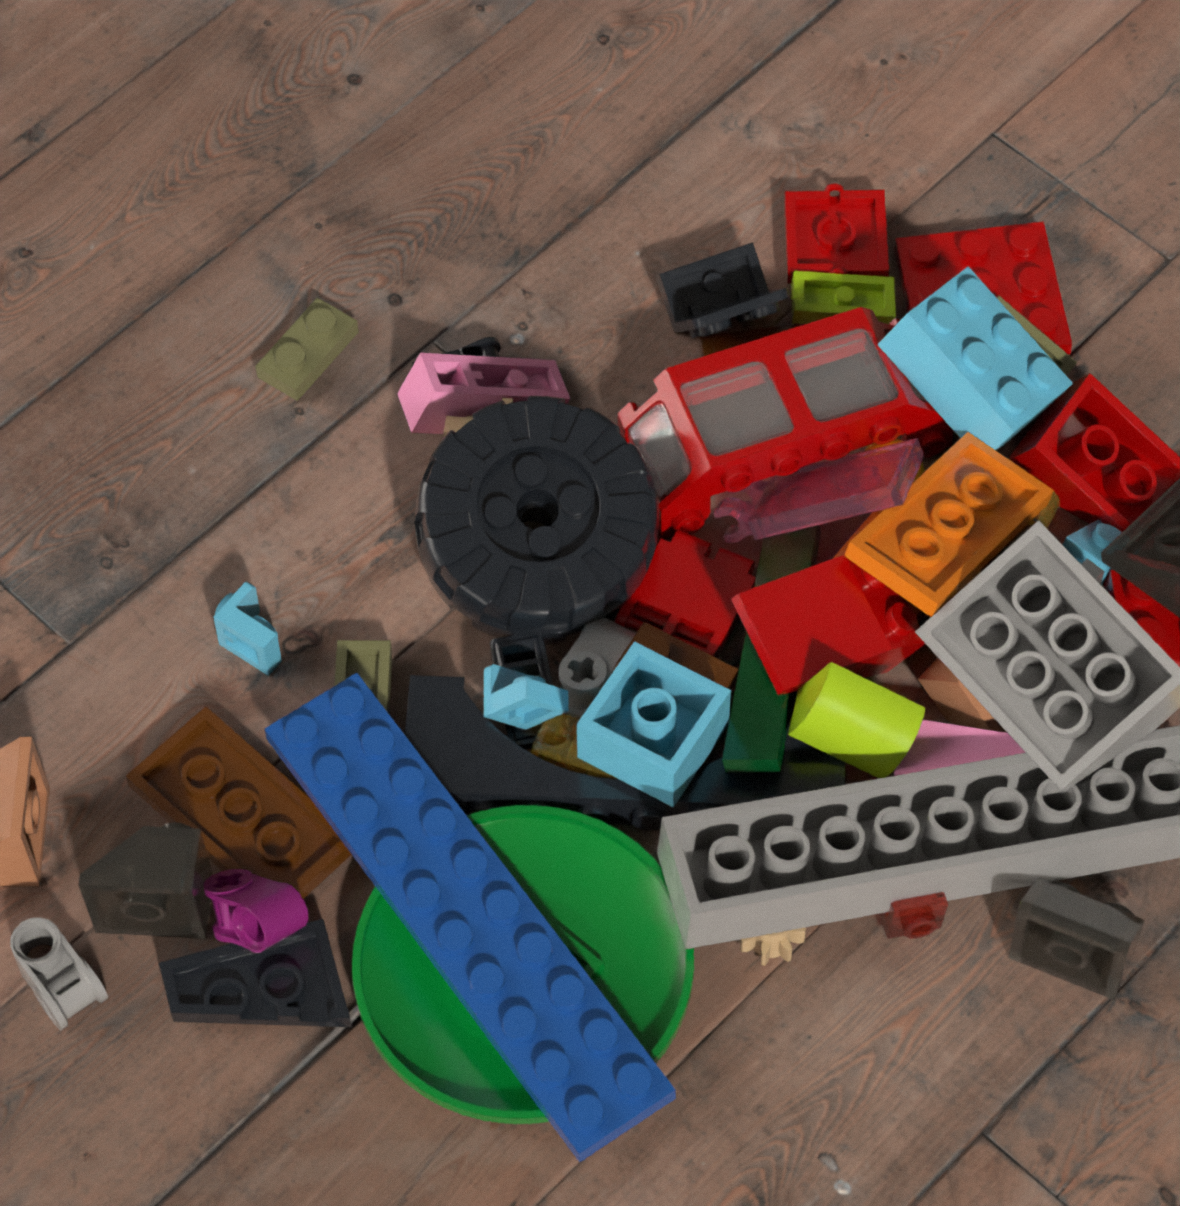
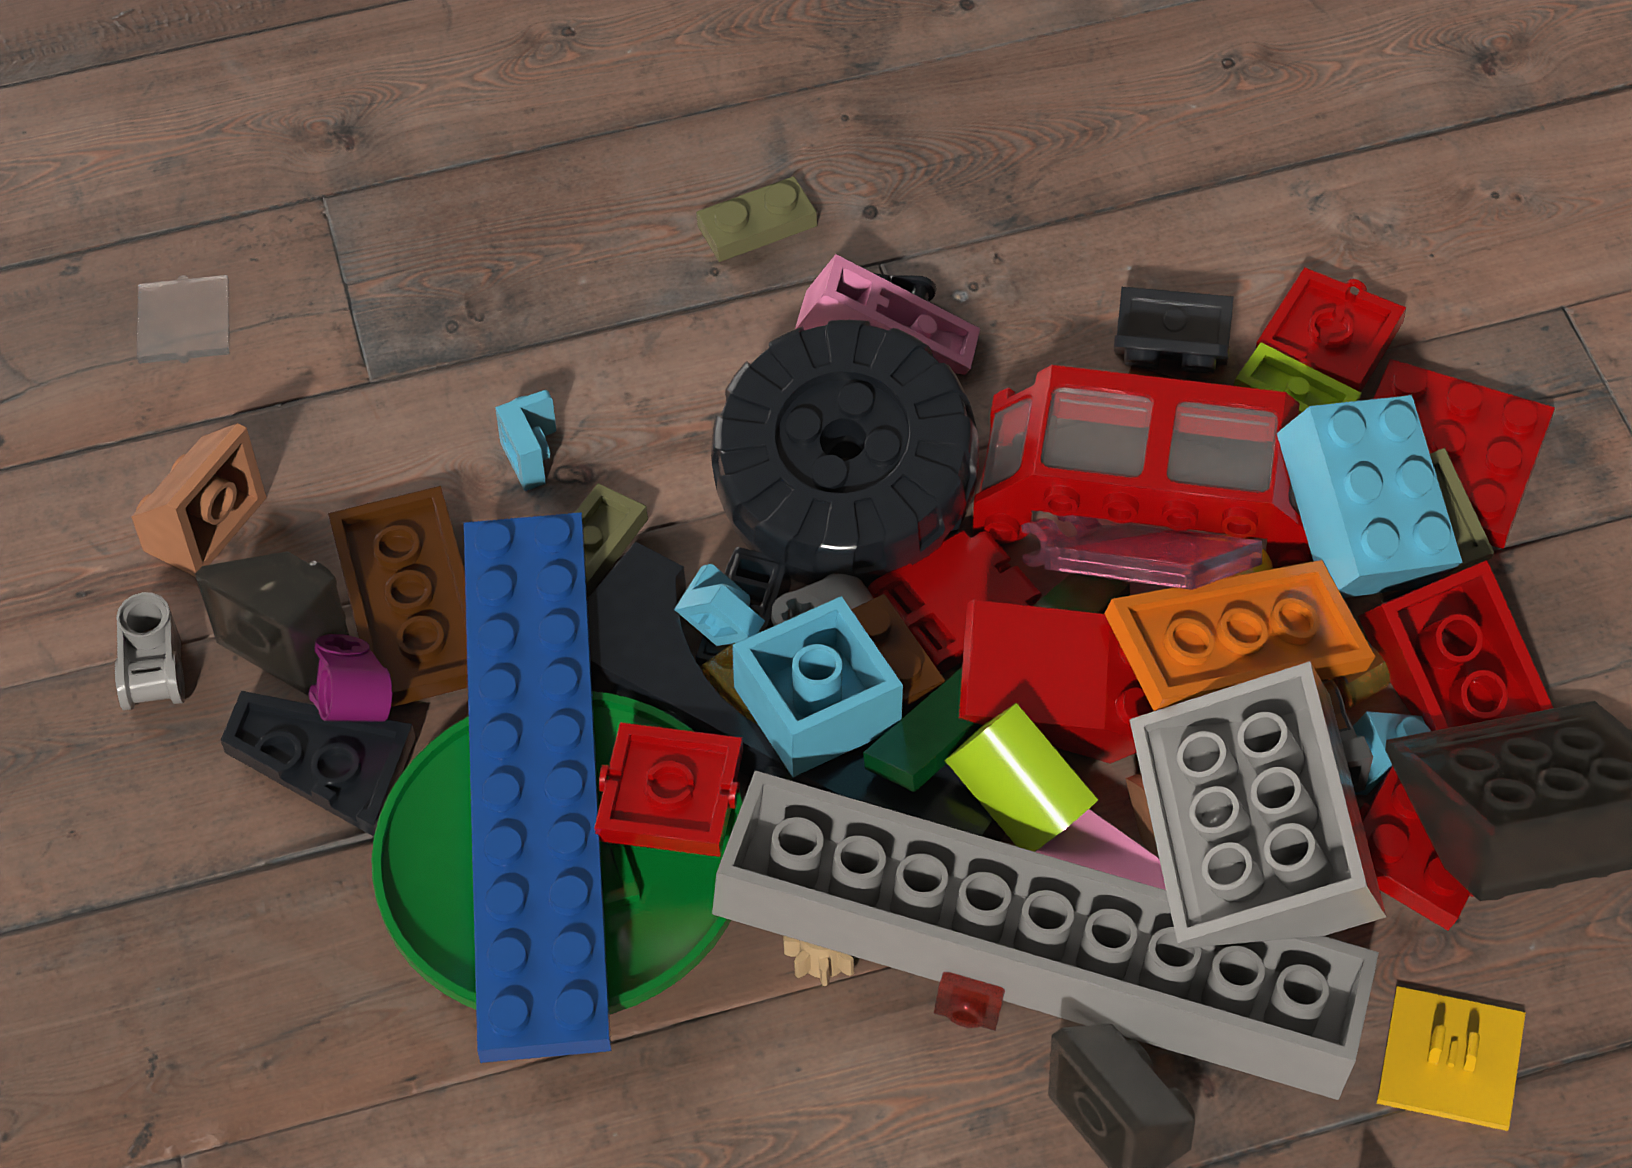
camera: 30 degrees right, 5 degrees down
(586, 866) = (669, 789): none -> red plate

